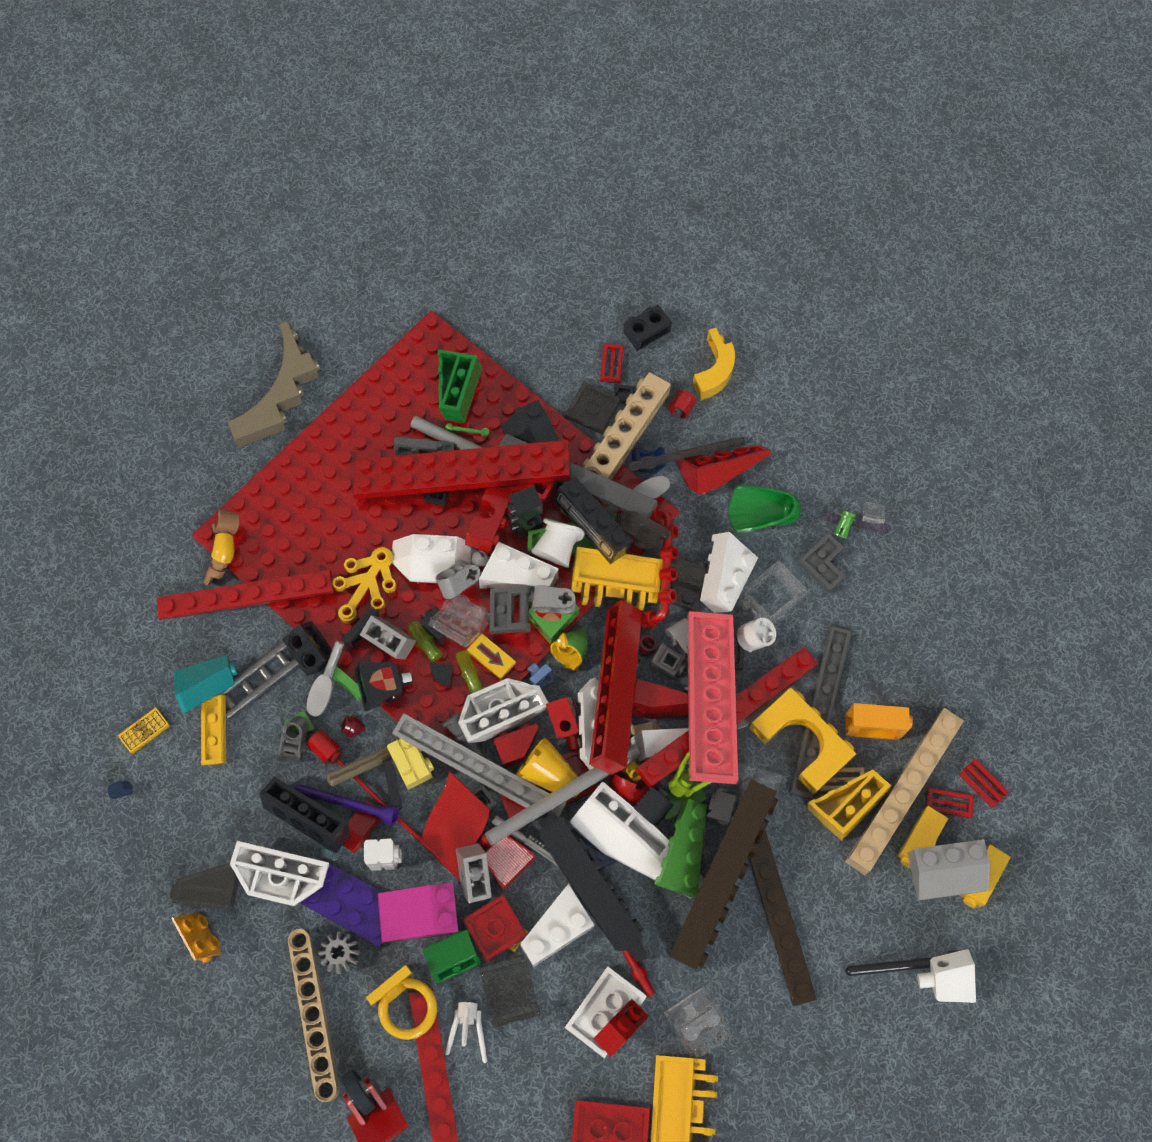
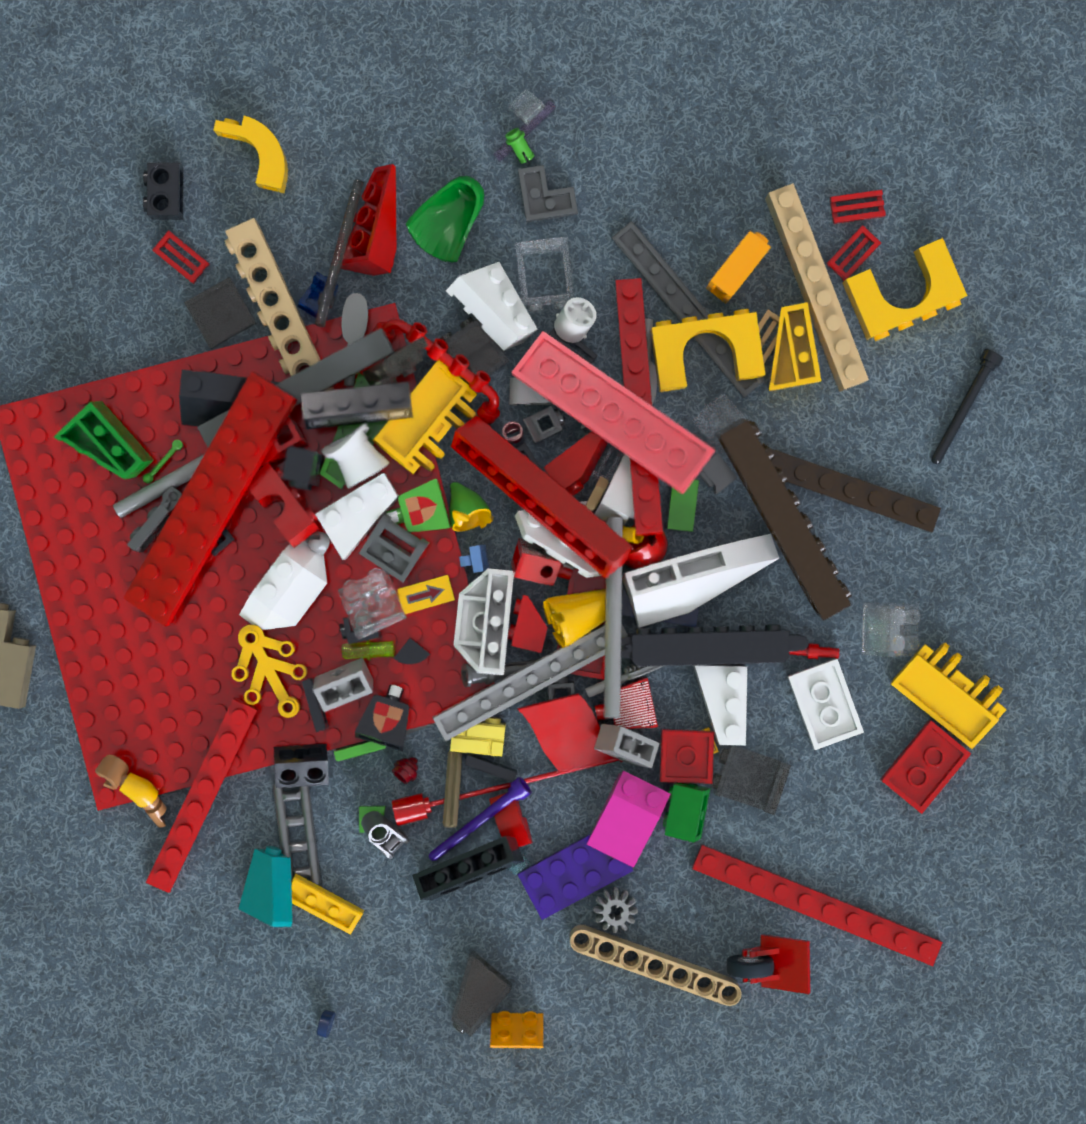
camera: 55 degrees left, 20 degrees up
(143, 730) = (279, 969): yellow tile -> none
(277, 874) = (507, 925): white wedge -> none
(323, 686) = (349, 775): light grey piece -> none
(382, 854) = (553, 819): white brick -> none
(393, 988) = (681, 883): yellow tile -> none
(457, 578) = (328, 582): light grey piece -> none
(467, 1013) = (745, 829): white plant -> none
(469, 673) = (429, 627): clear neon green axle -> none
(550, 599) = (411, 504): light grey piece -> none
(621, 1027) = (851, 701): red slope -> none
(623, 392) = (224, 267): black tile -> none
(654, 805) = (677, 538): black brick -> none
(680, 783) = (671, 498): lime plant -> none
(682, 400) = (277, 215): red piece -> none
(683, 861) = (742, 542): bright green wing -> none
(950, 869) = (917, 305): light grey slope -> none
(951, 977) = (1005, 375): white torso -> none

